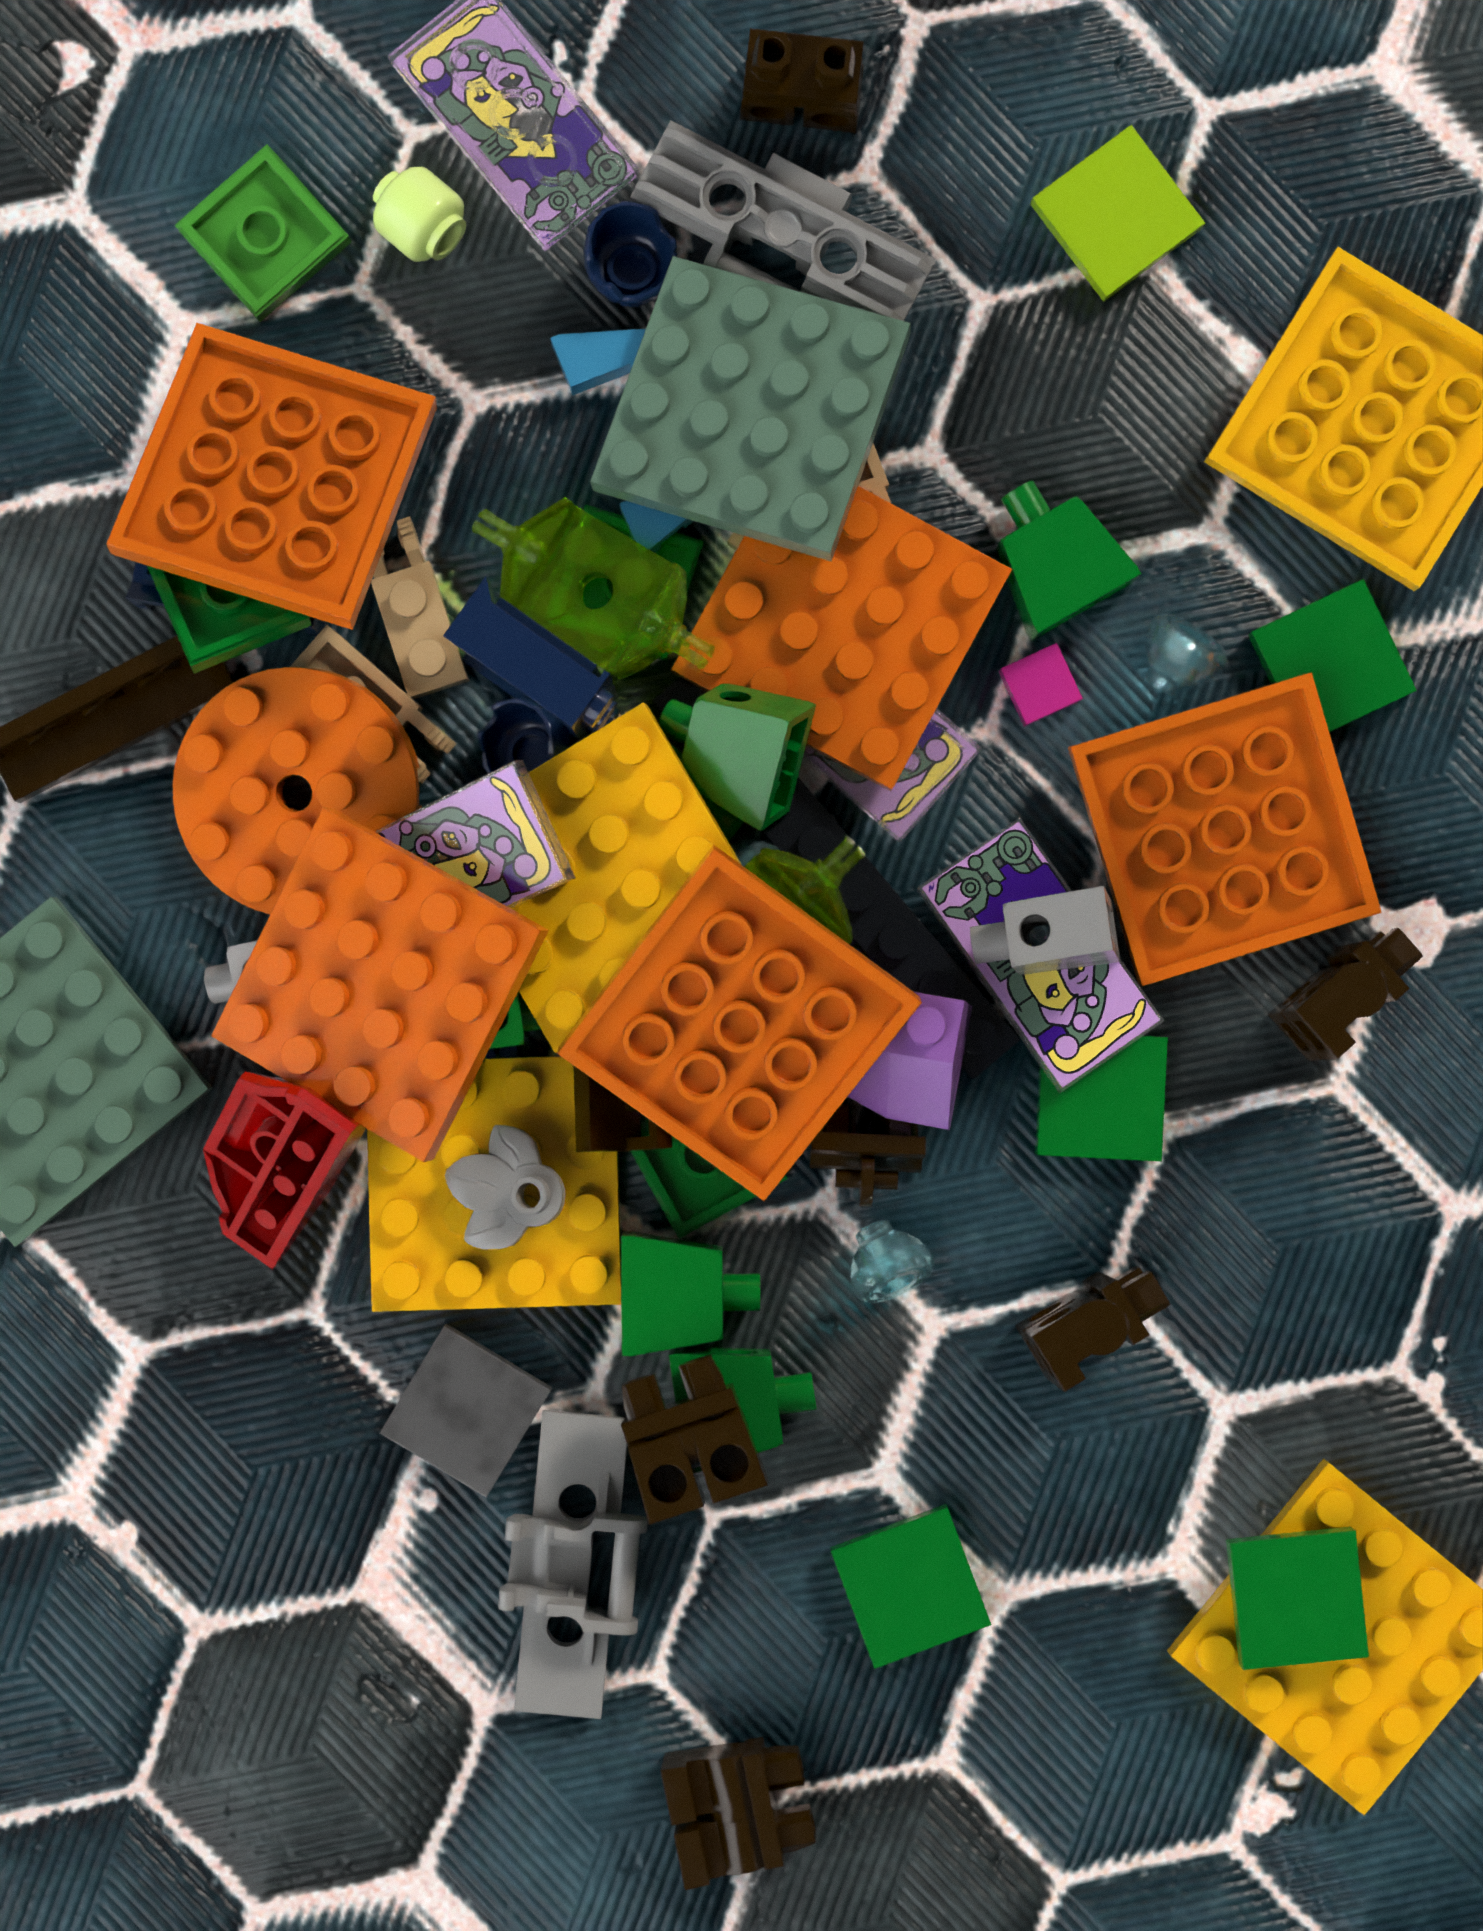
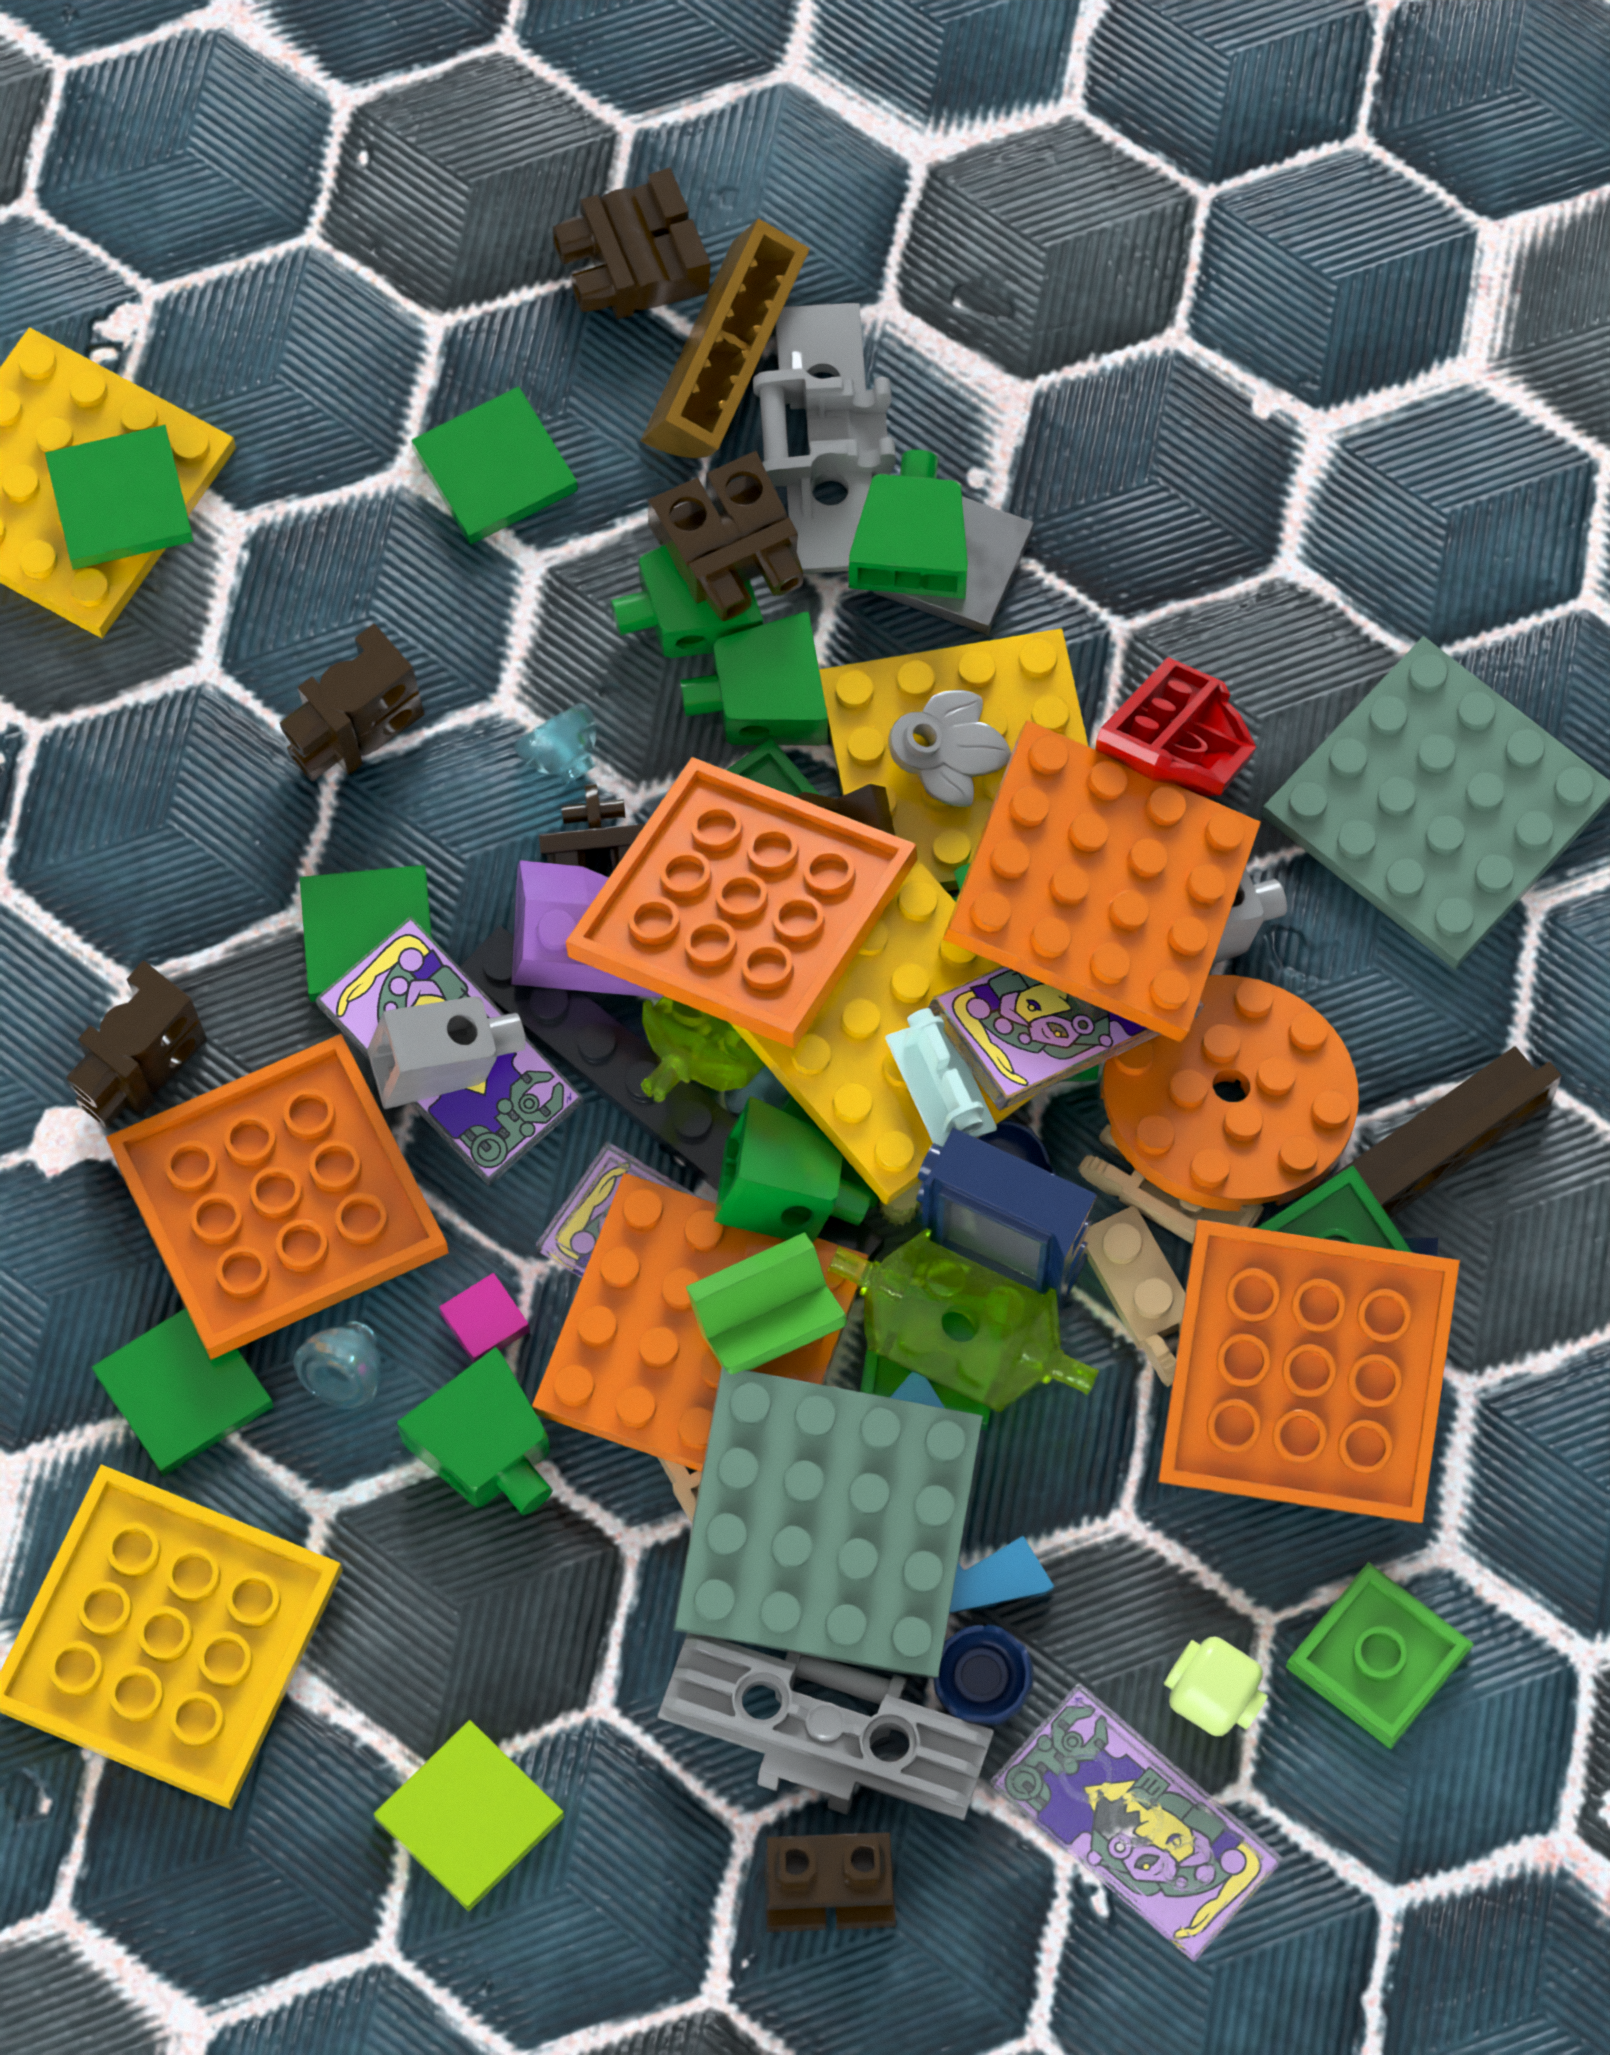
camera: 175 degrees right, 20 degrees down
(501, 1431) = (911, 533): none -> green torso
(575, 798) = (939, 1079): none -> light aqua hinge
(656, 1685) = (726, 342): none -> pearl gold brick
(778, 606) = (765, 1305): none -> bright green panel

